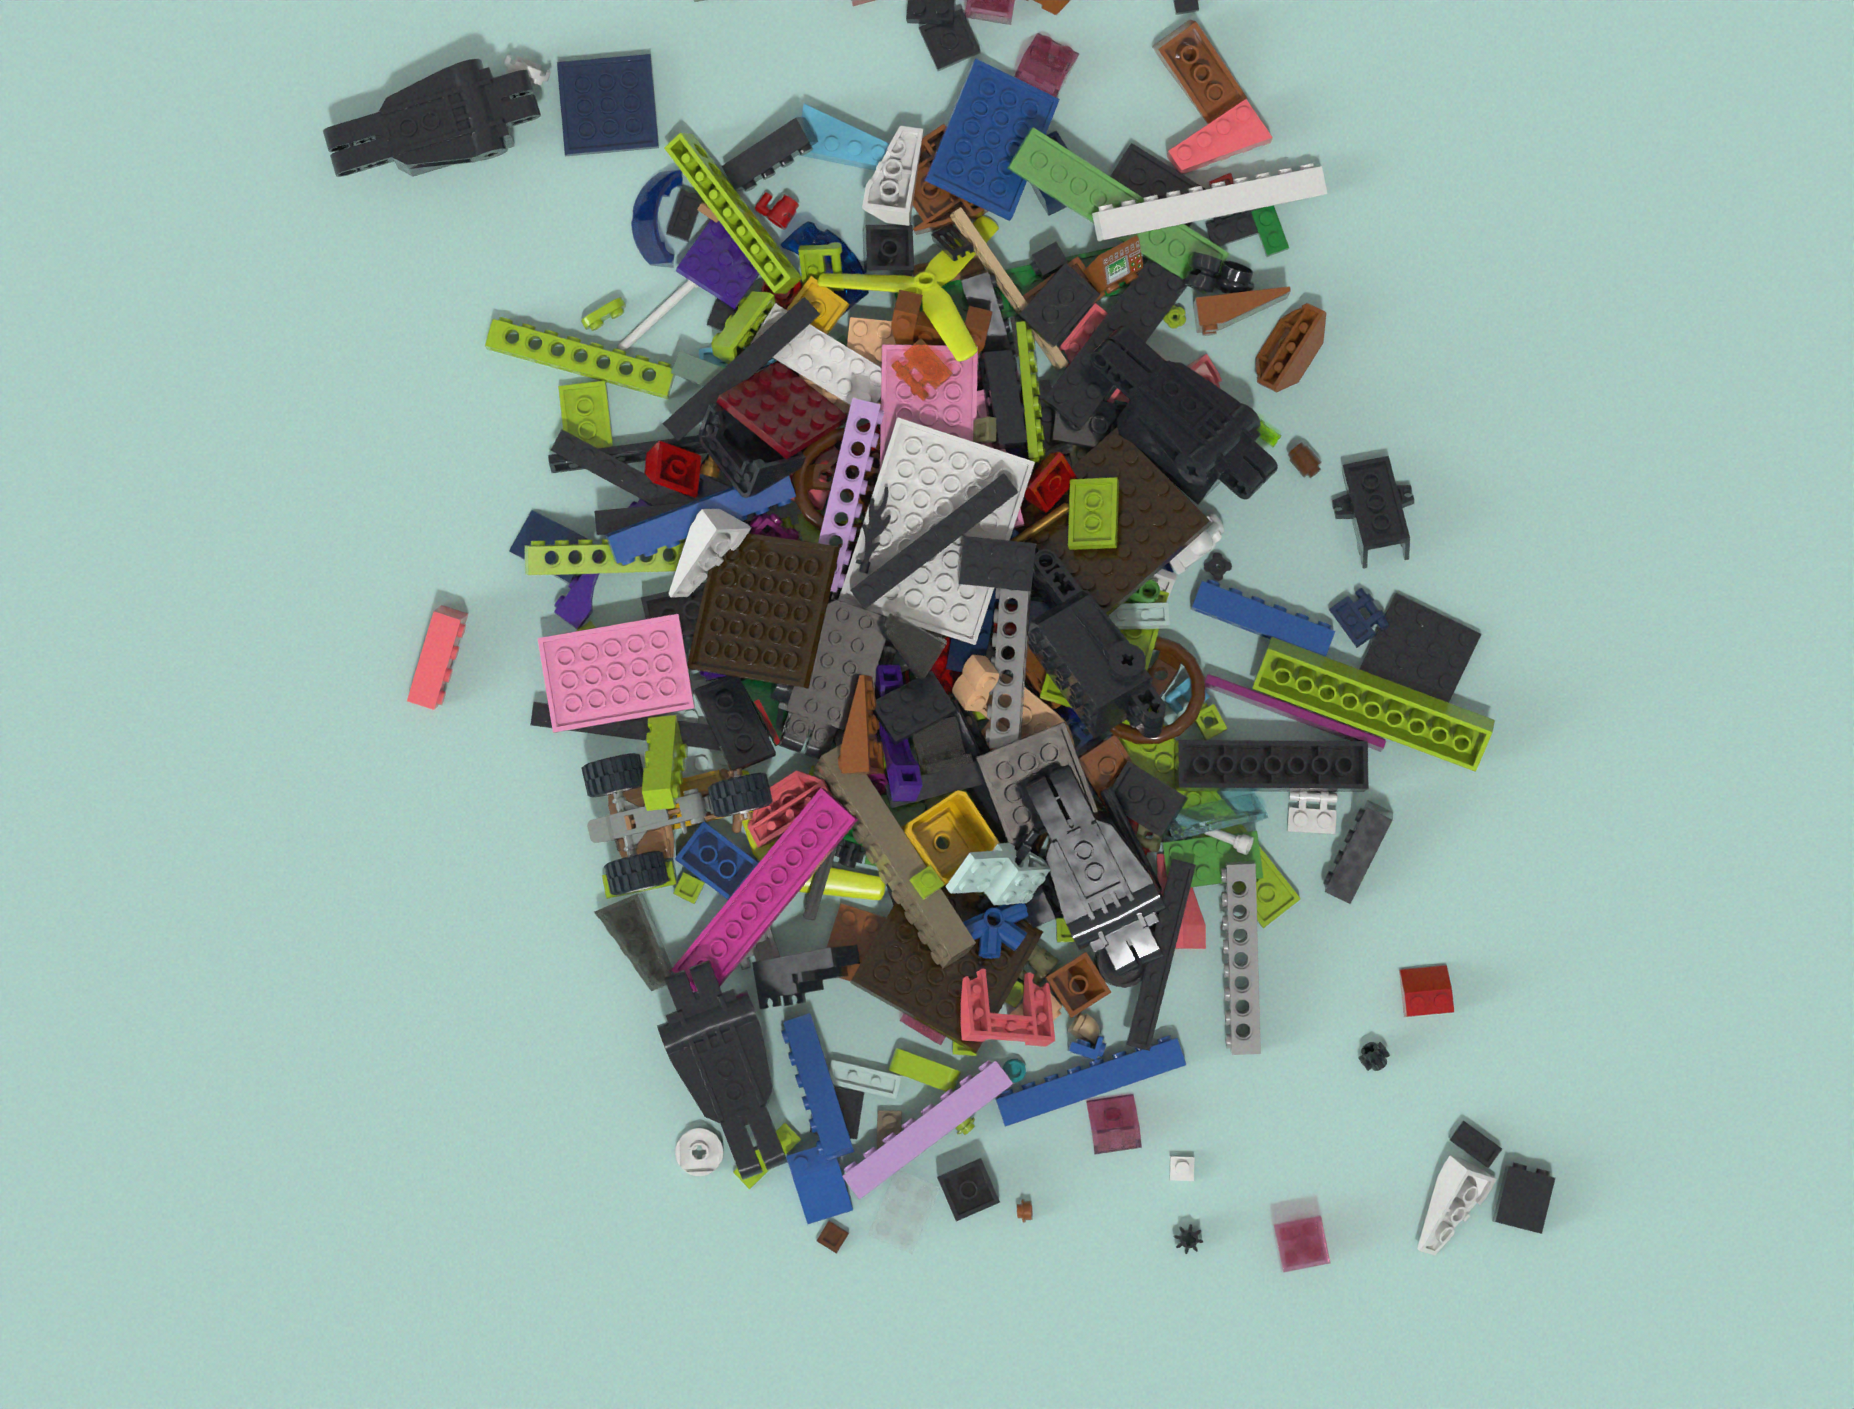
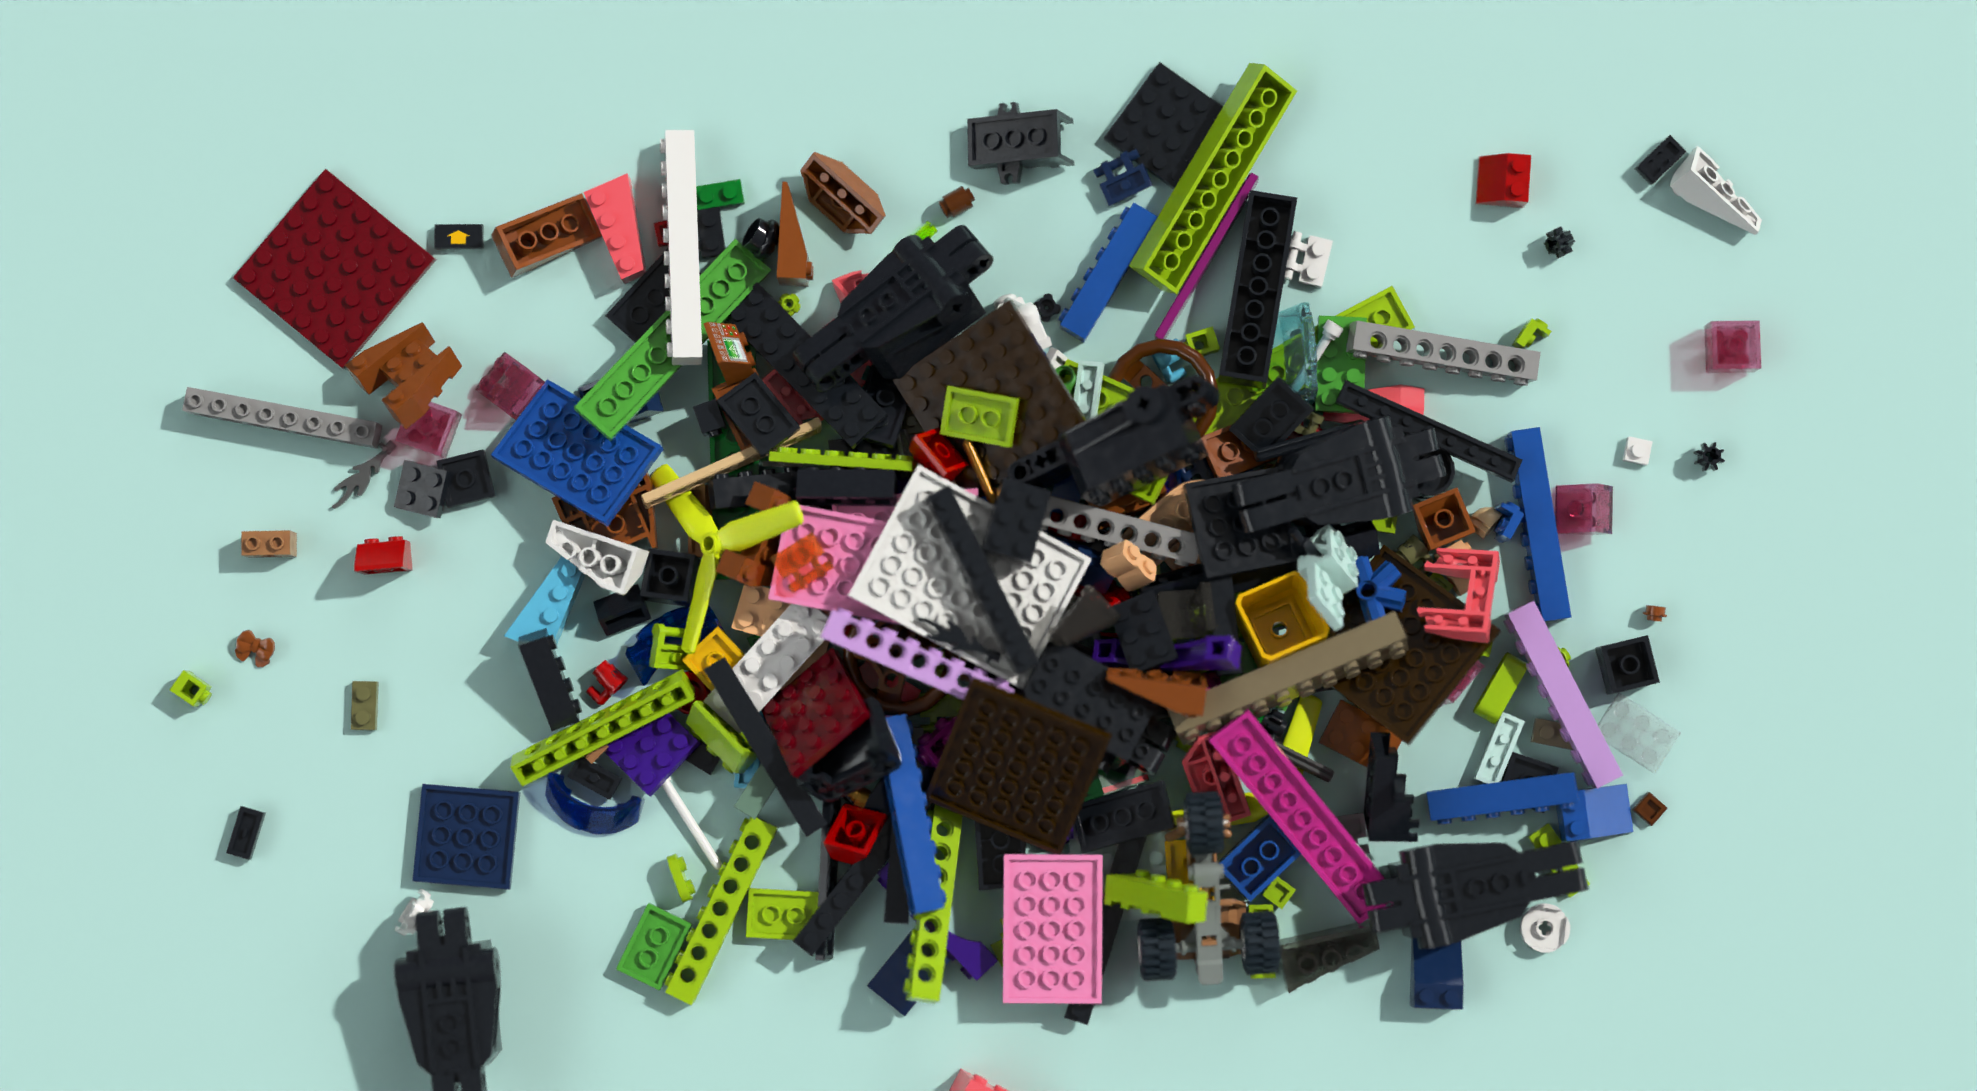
camera: 80 degrees left, 0 degrees up
(534, 301) = (654, 946): none -> bright green plate
(635, 1054) = (1436, 976): none -> dark blue slope
(706, 543) = (937, 812): white wedge -> none
(847, 212) = (621, 611): none -> black brick
(926, 882) = (1326, 649): lime plate -> none
(966, 245) = (684, 507): black tile -> none
(984, 430) = (876, 510): olive plate -> none
(1015, 1070) = (1513, 598): teal plate -> none
(1202, 272) = (750, 266): black wheel -> none
(1274, 1040) = (1526, 335): none -> lime bracket
(1359, 851) = (1355, 219): black wedge -> none
(1524, 1198) = (1721, 122): black brick -> none

